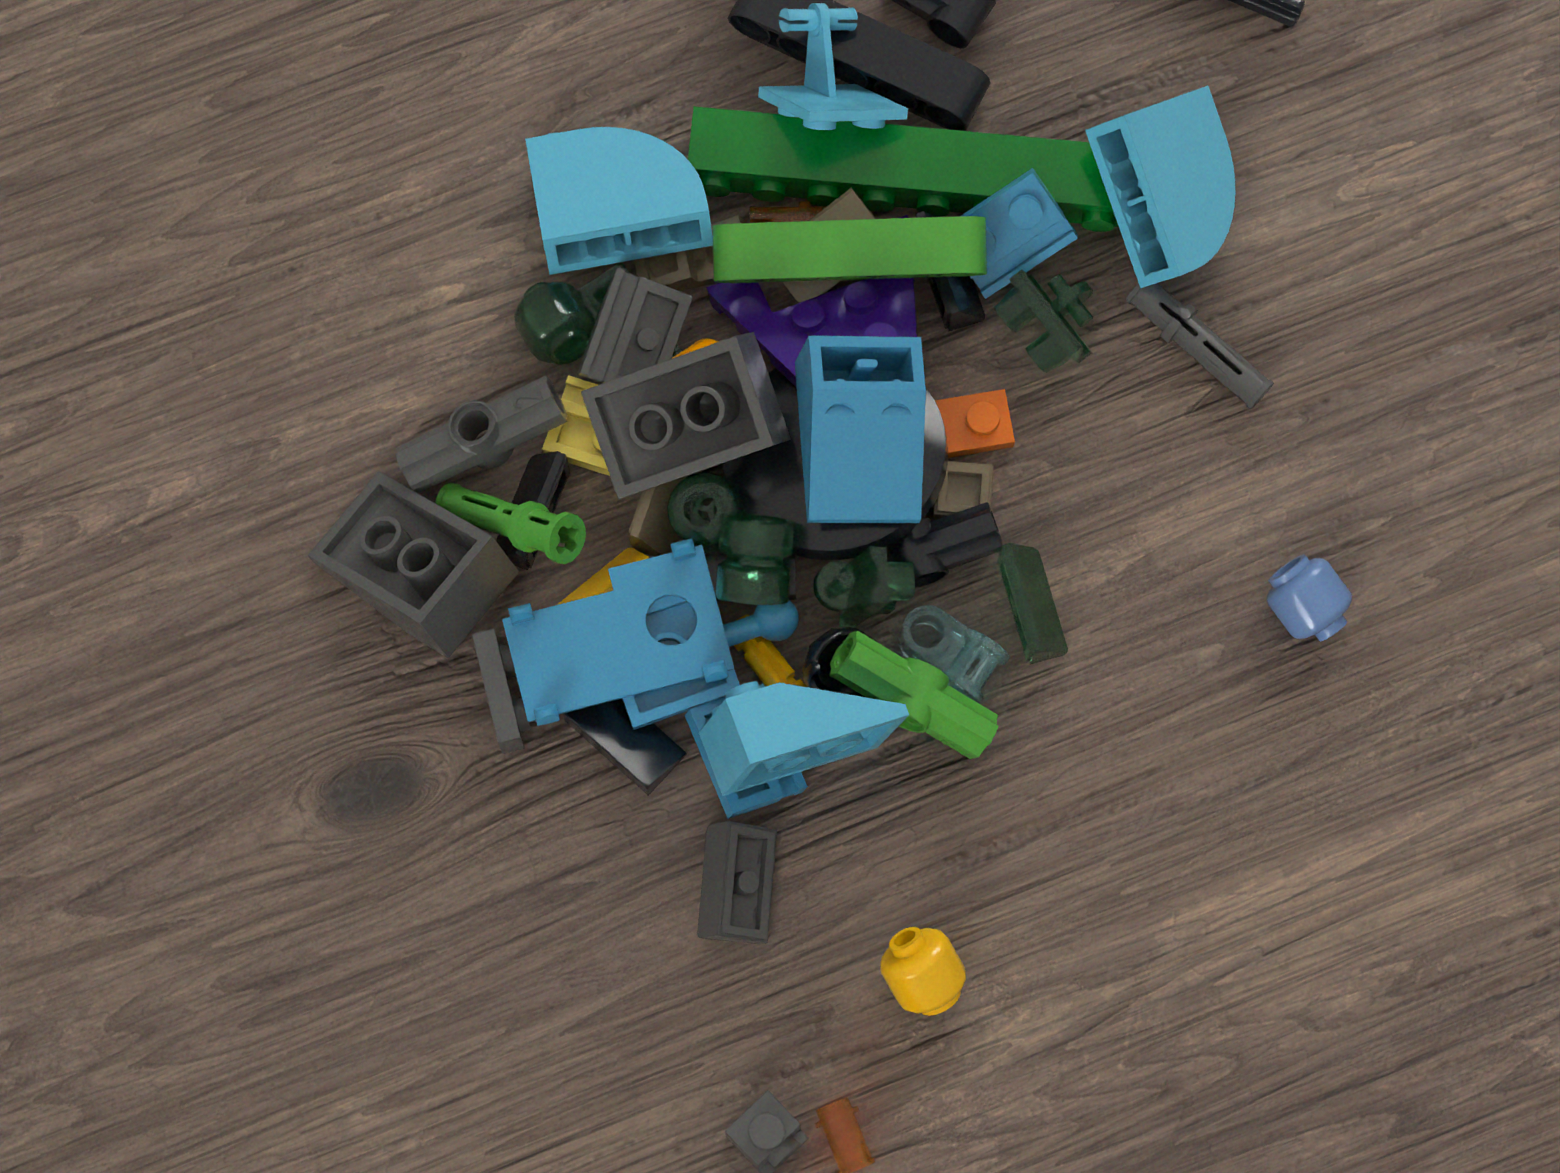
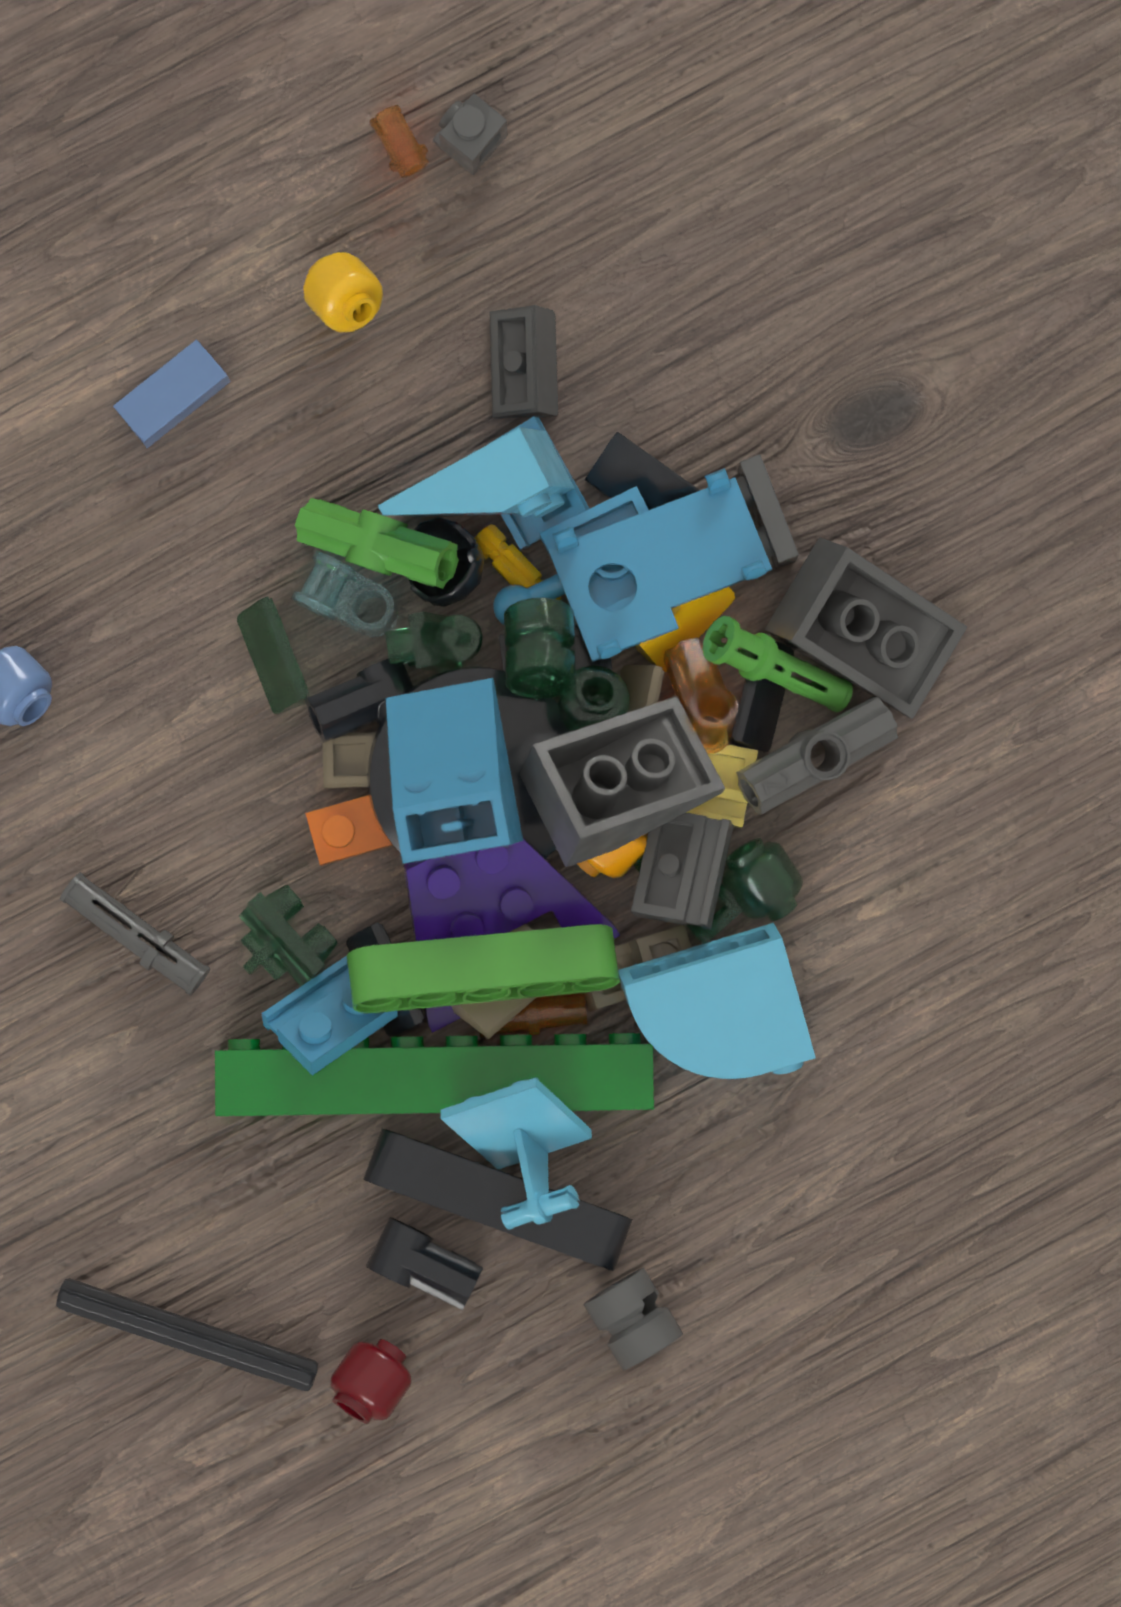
camera: 170 degrees right, 10 degrees up
(596, 508) = (702, 693): none -> clear orange piece
(1116, 890) = (172, 393): none -> medium blue slope
(1168, 183) = (177, 1079): medium azure brick -> none

